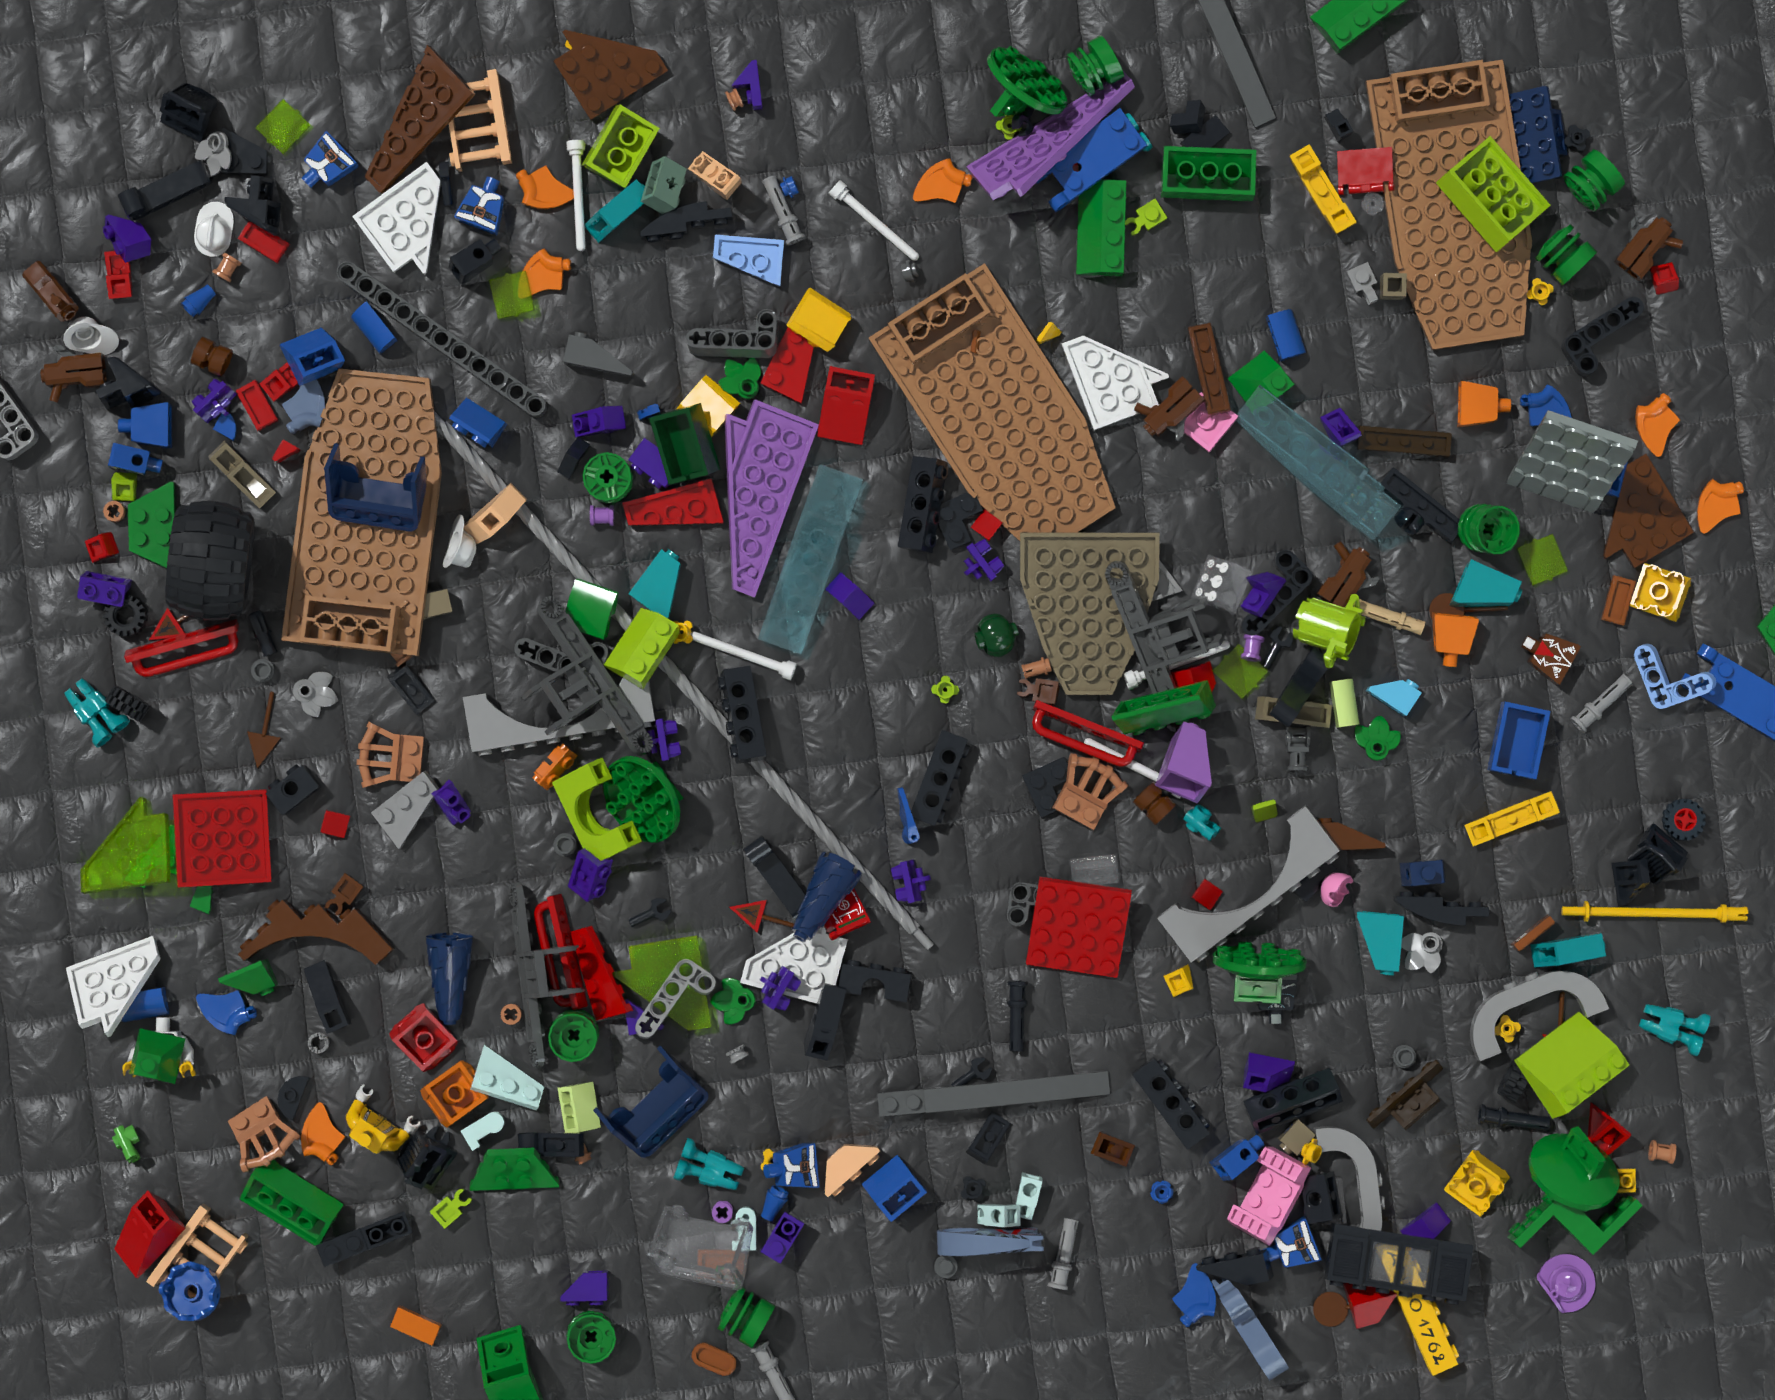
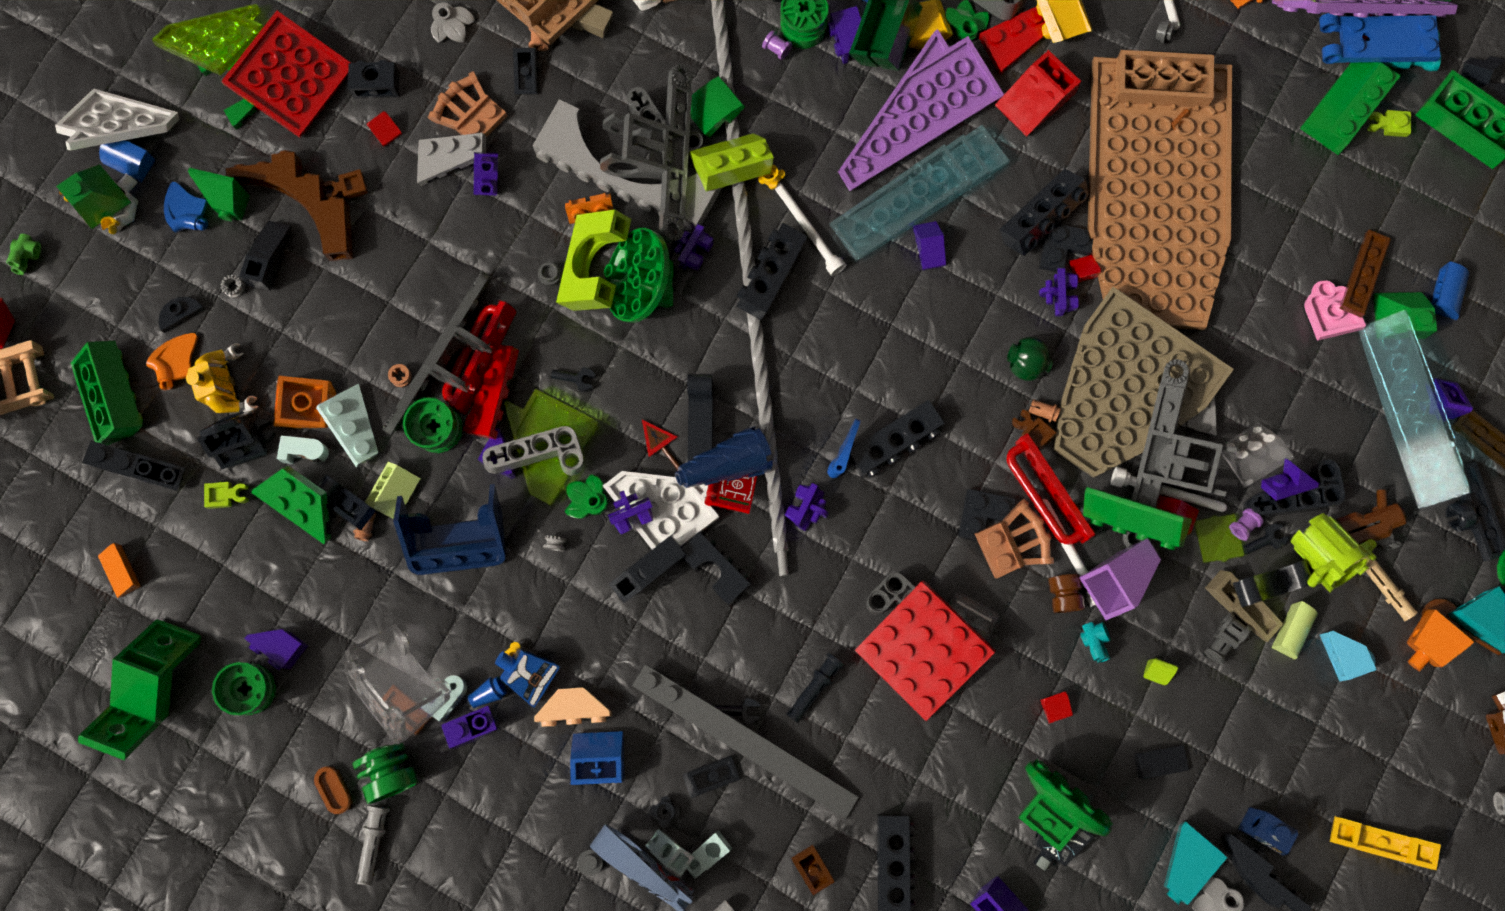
camera: 40 degrees right, 10 degrees down
(254, 1123) = (125, 310): nougat plate -> none
(262, 743) = (381, 33): reddish brown piece -> none
(423, 1038) = (314, 343): red slope -> none
(449, 963) = (381, 296): dark blue cone -> none
(589, 875) = (549, 308): dark purple bracket -> none
(658, 583) = (783, 124): teal slope -> none
(678, 506) = (843, 80): red wing -> none
(714, 1167) = (462, 623): teal piece -> none
(722, 1219) = (434, 661): medium lavender bush -> none
(951, 689) = (958, 368): lime plate -> none
(1048, 333) = (1246, 154): yellow slope -> none
(1110, 381) = (1272, 227): white wing -> none
(1172, 411) = (1313, 281): reddish brown piece -> none
(1179, 980) = (978, 765): yellow slope -> none
(1199, 931) = (1180, 731): light grey arch -> none
(1334, 888) = (1176, 785): bright pink hair -> none
(1348, 838) = (1213, 744): reddish brown slope -> none
(1377, 734) = (1306, 680): green plate -> none
(1518, 740) = (1438, 777): blue piece -> none

